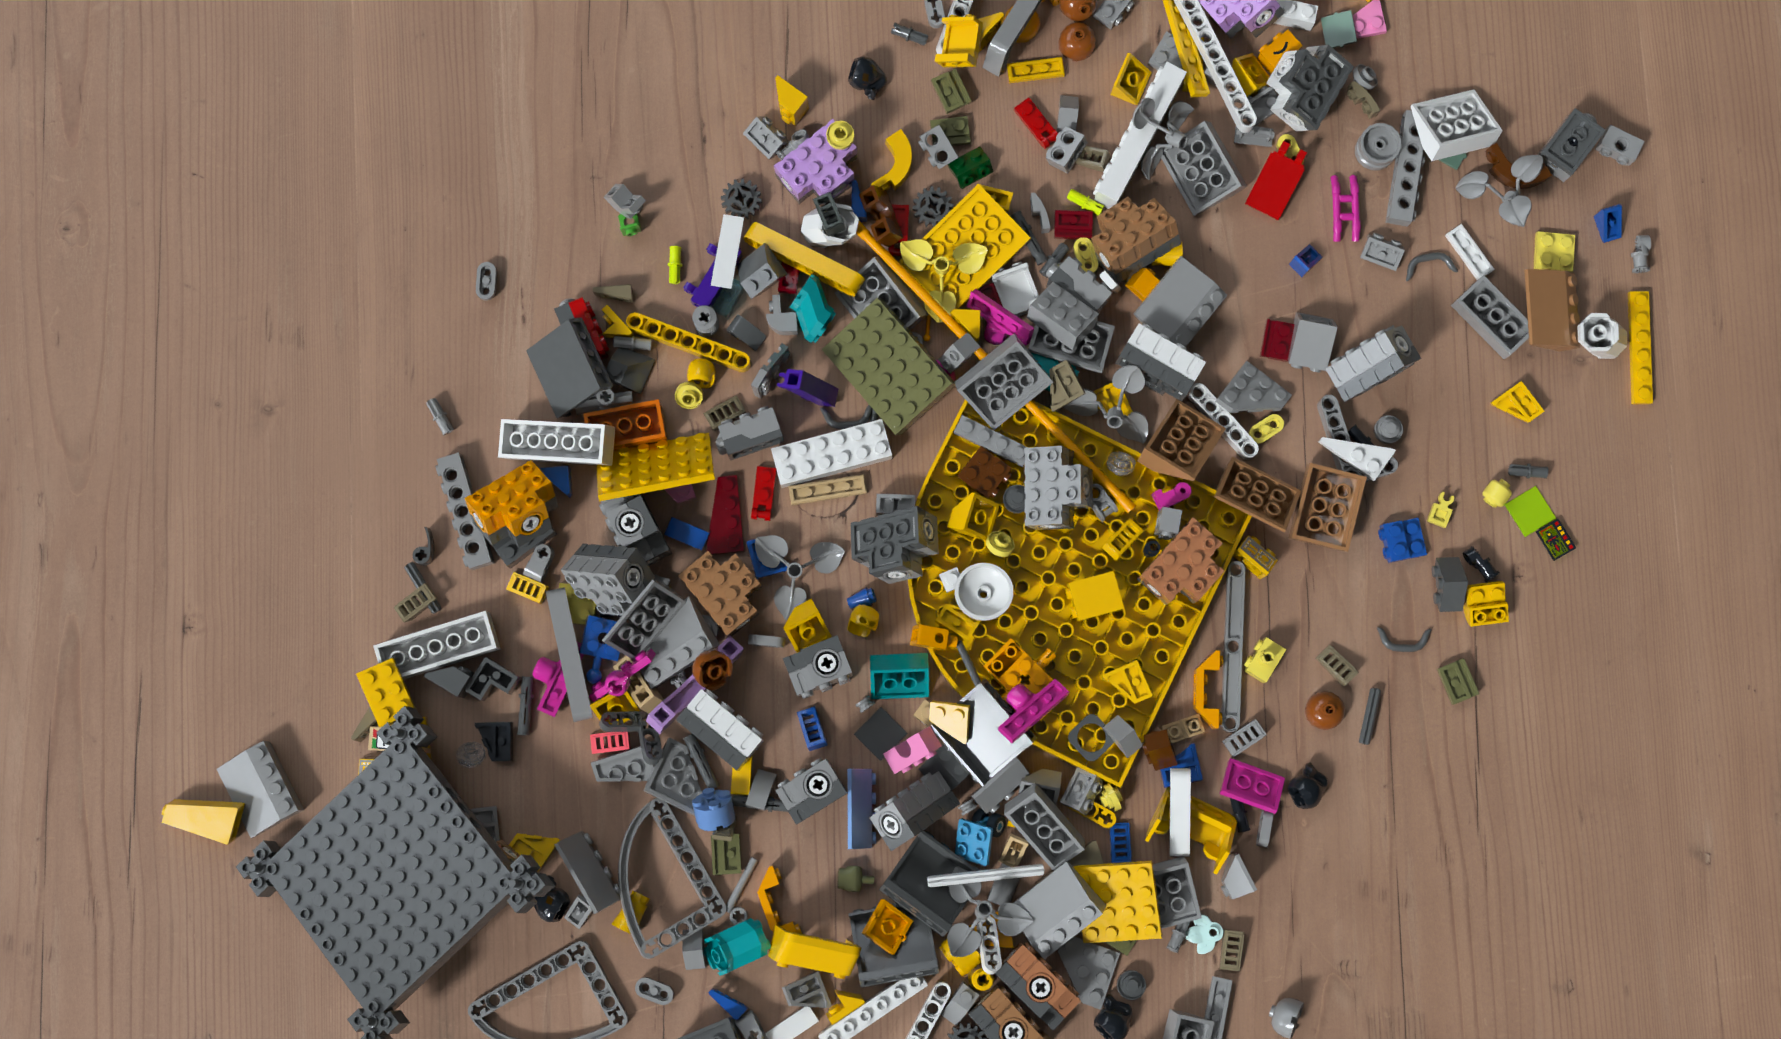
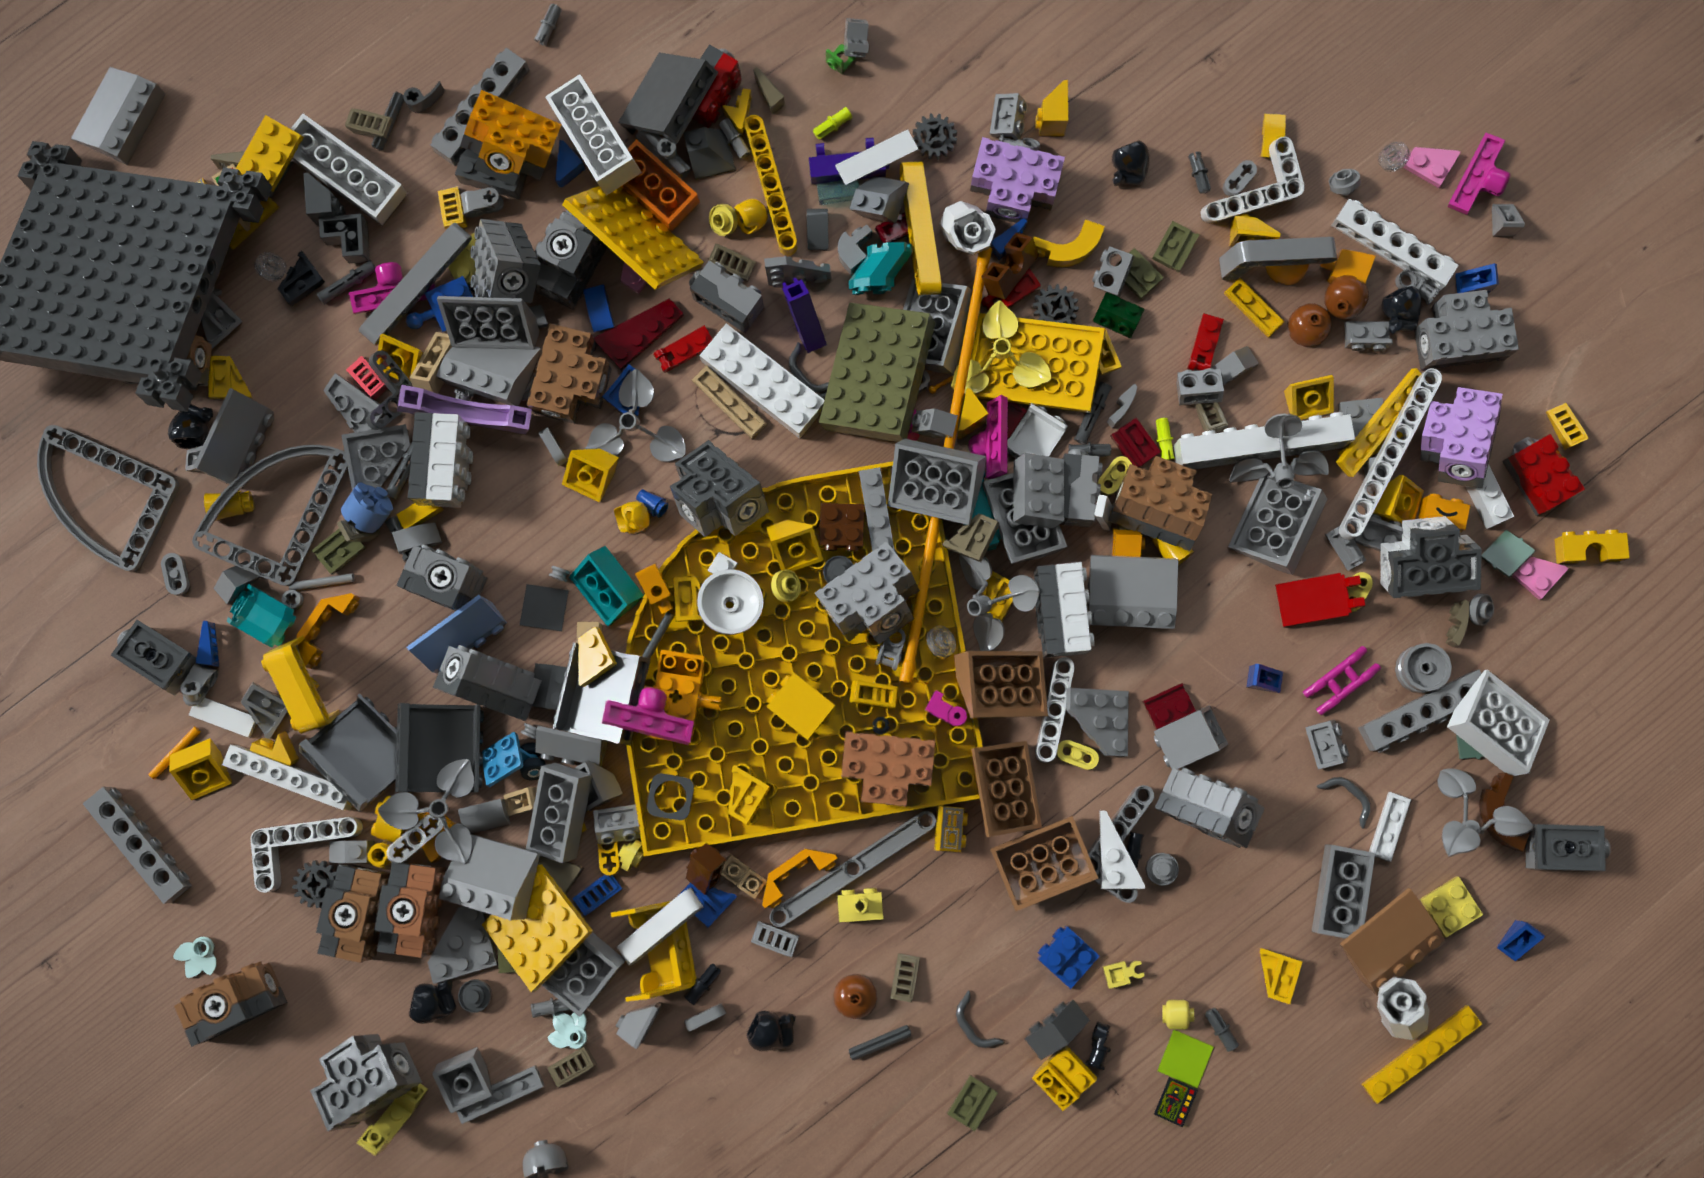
camera: 60 degrees right, 0 degrees up
(205, 818) = (59, 89): yellow slope -> none
(619, 680) = (418, 341): dark pink plate -> none
(705, 328) = (799, 184): light grey piece -> none
(711, 669) = (485, 412): dark orange cylinder -> none
(809, 670) = (557, 506): piece -> none
(816, 744) = (498, 539): blue slope -> none
(832, 225) = (965, 226): pearl dark grey slope -> none
(840, 135) = (1052, 172): light yellow plate -> none
(851, 879) = (393, 675): olive piece -> none
(887, 927) = (369, 736): light orange plate -> none
(893, 502) = (755, 465): light grey brick -> none
(912, 751) = (543, 644): bright pink arch -> none
(960, 41) = (1224, 217): yellow panel -> none
(985, 875) = (477, 791): white axle -> none
(1123, 736) = (691, 824): light grey slope -> none
(1167, 523) = (915, 723): light grey brick -> none
(1252, 785) = (734, 977): dark pink plate -> none
(1630, 145) = (1612, 905): light grey brick -> none
(1640, 256) = (1508, 992): light grey connector -> none

